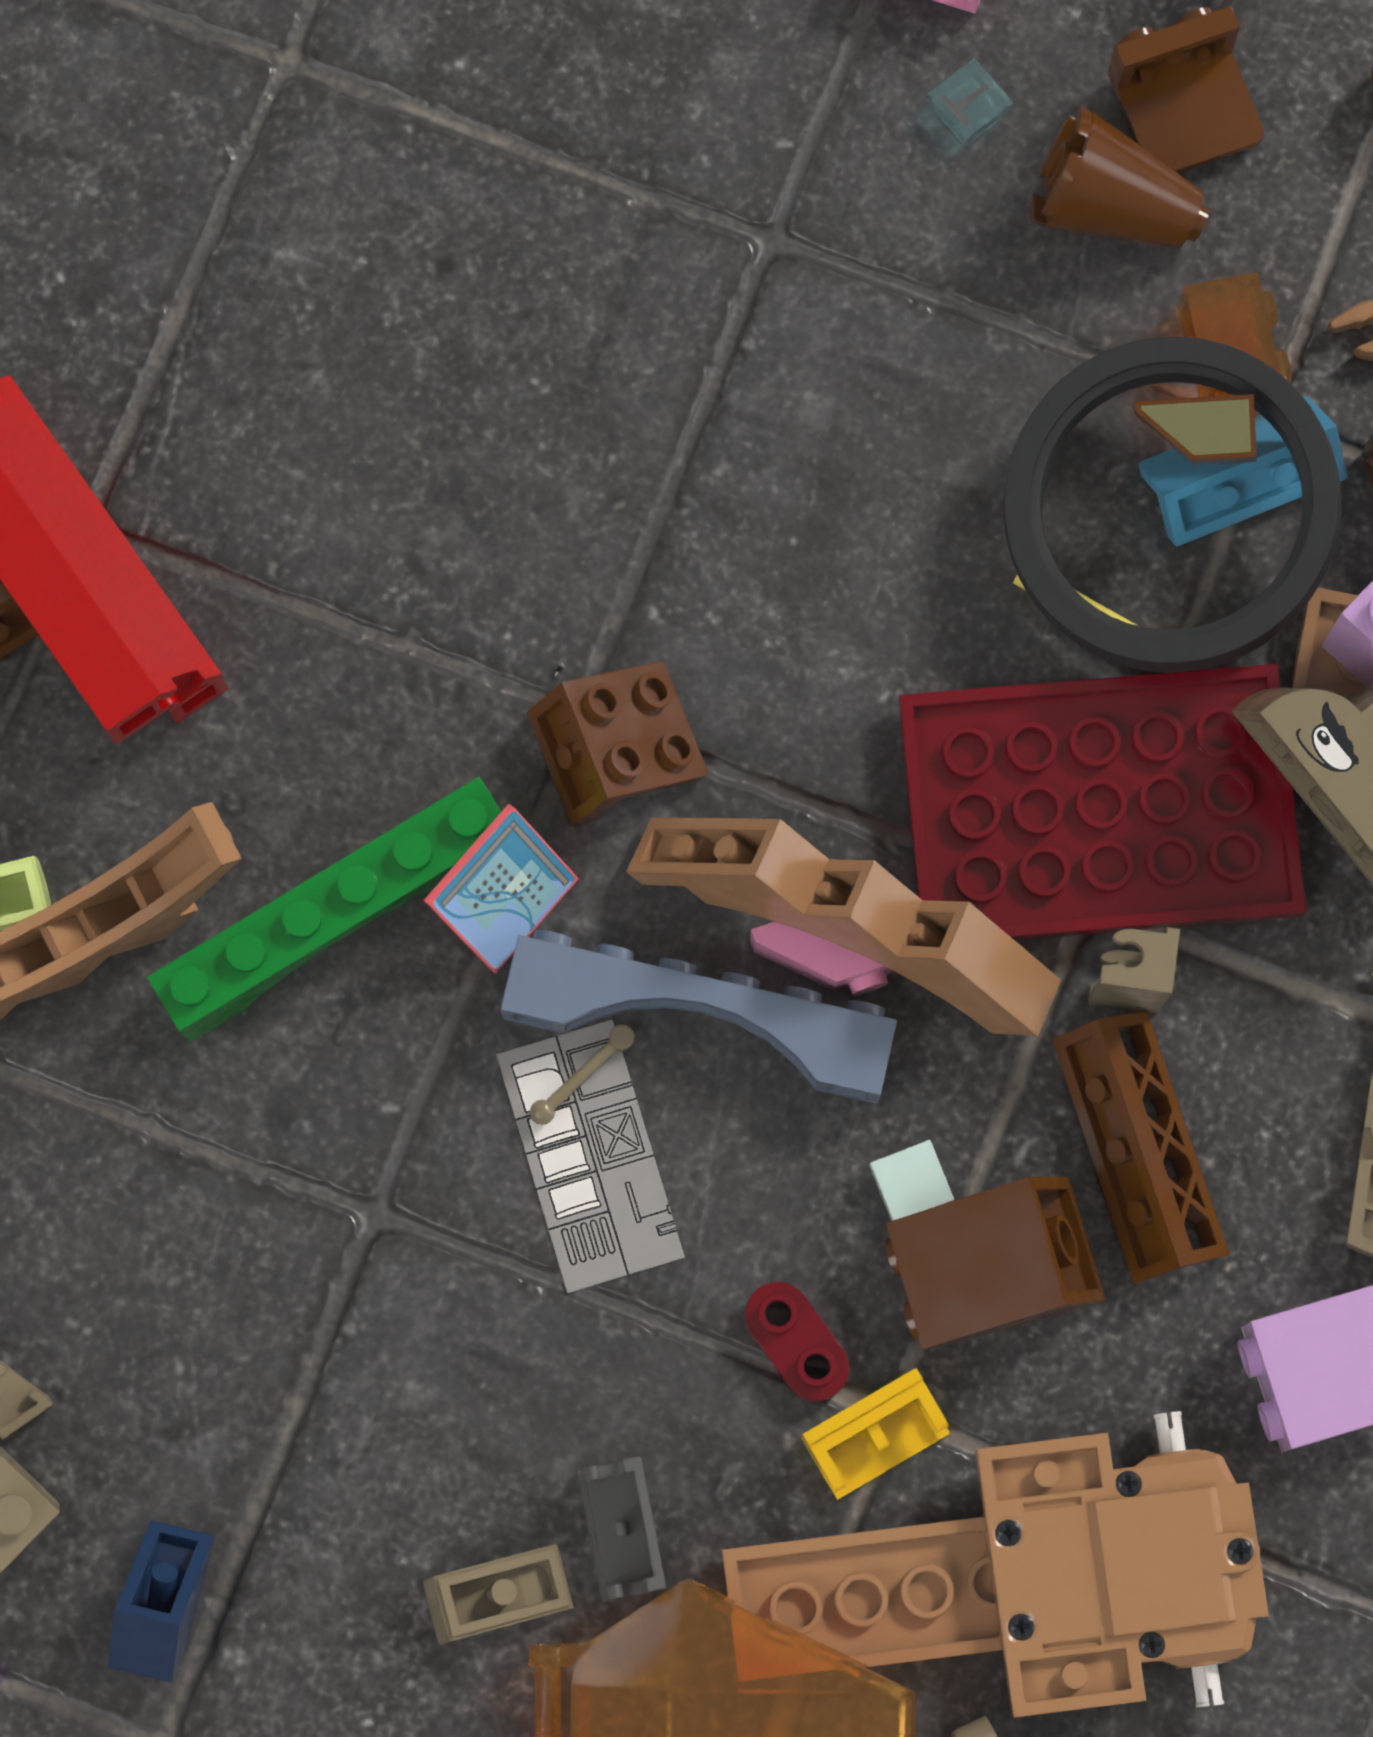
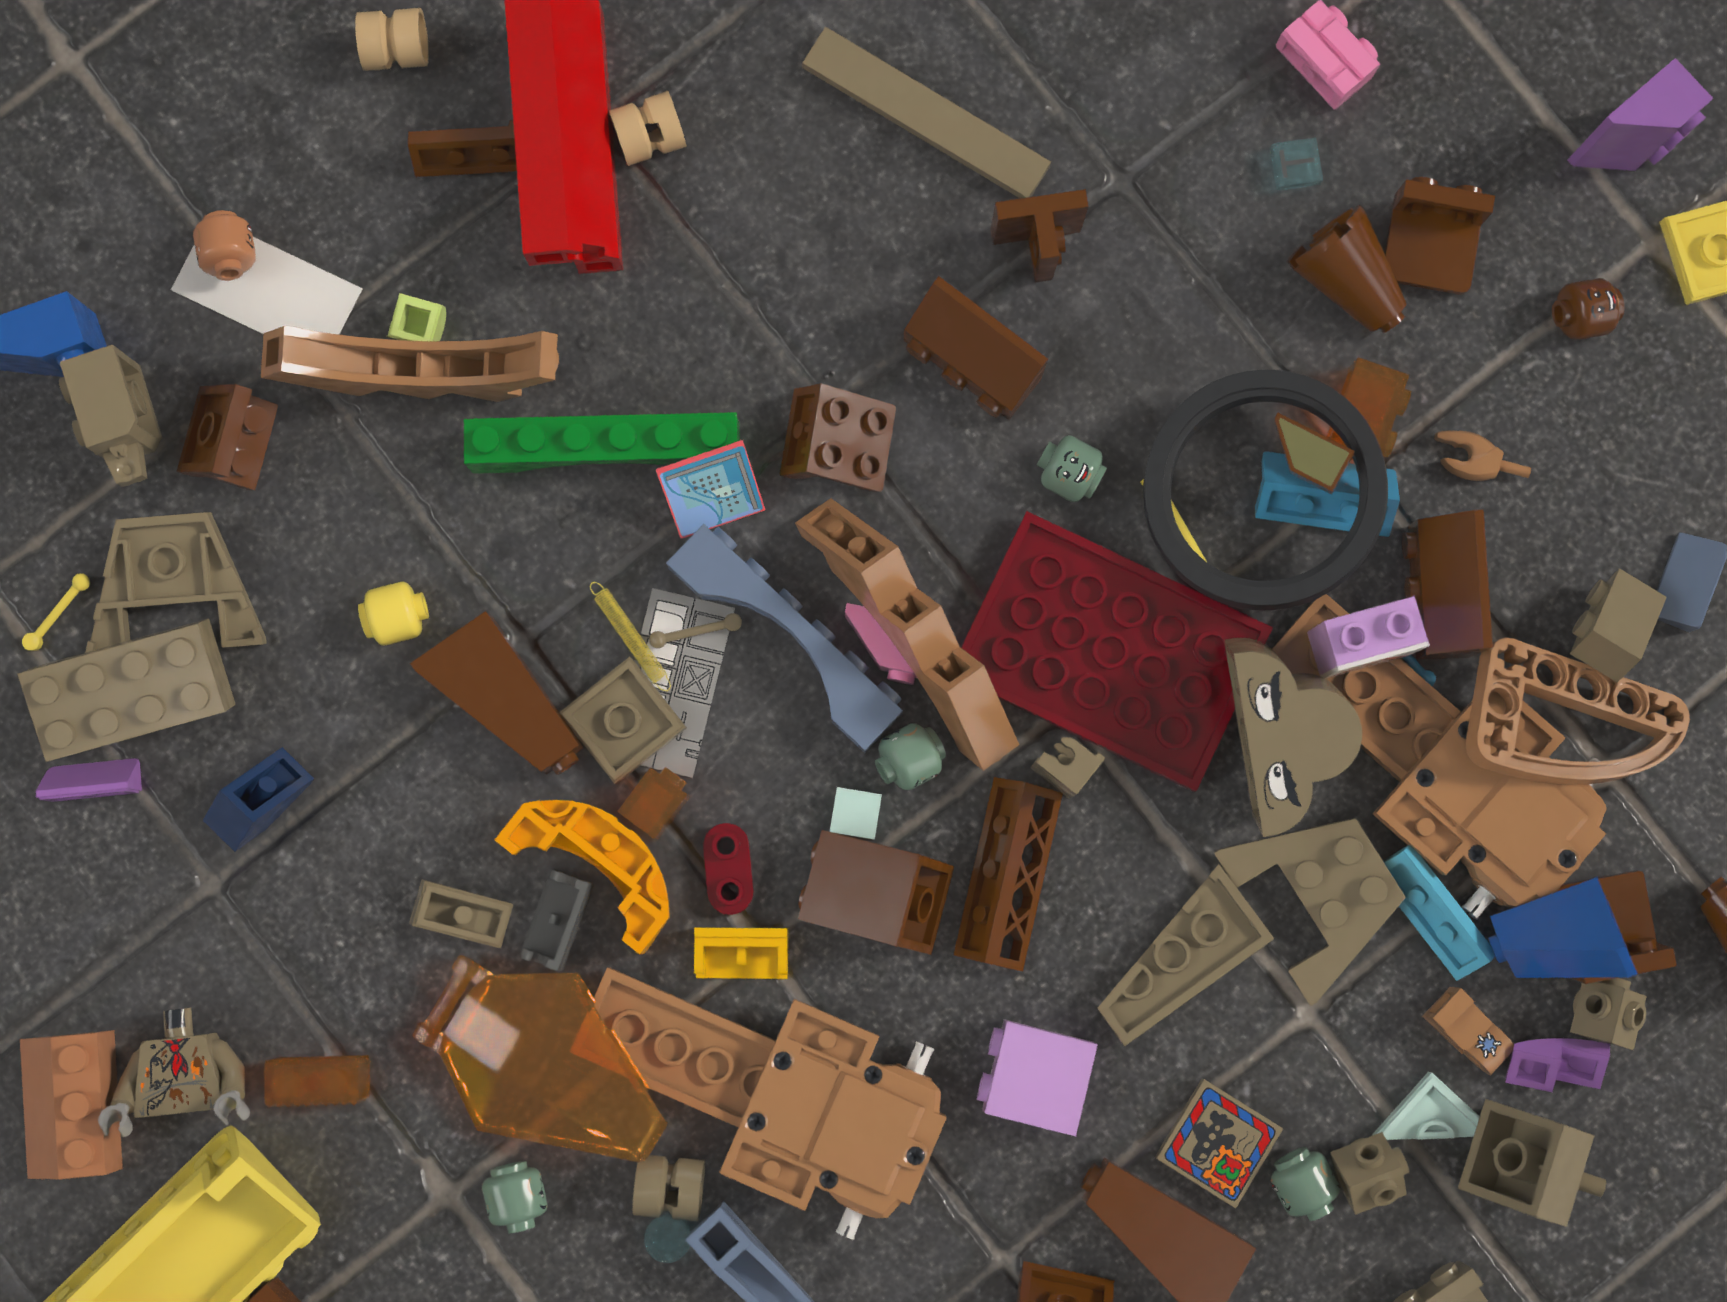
camera: 30 degrees right, 5 degrees up
(145, 514) = (631, 130): none -> tan wheel
(194, 1270) = (393, 613): none -> light yellow head
(382, 1289) = (496, 688): none -> reddish brown slope
(489, 292) = (926, 114): none -> dark tan tile
(499, 1129) = (627, 625): none -> light yellow piece
(558, 1236) = (623, 720): none -> dark tan tile
(635, 1401) = (608, 847): none -> light orange windscreen
(659, 1310) = (655, 802): none -> clear orange brick
(714, 342) = (1043, 223): none -> reddish brown bracket
(721, 537) = (973, 350): none -> reddish brown slope
(922, 613) = (1071, 468): none -> sand green head
(937, 1072) = (910, 756): none -> sand green head

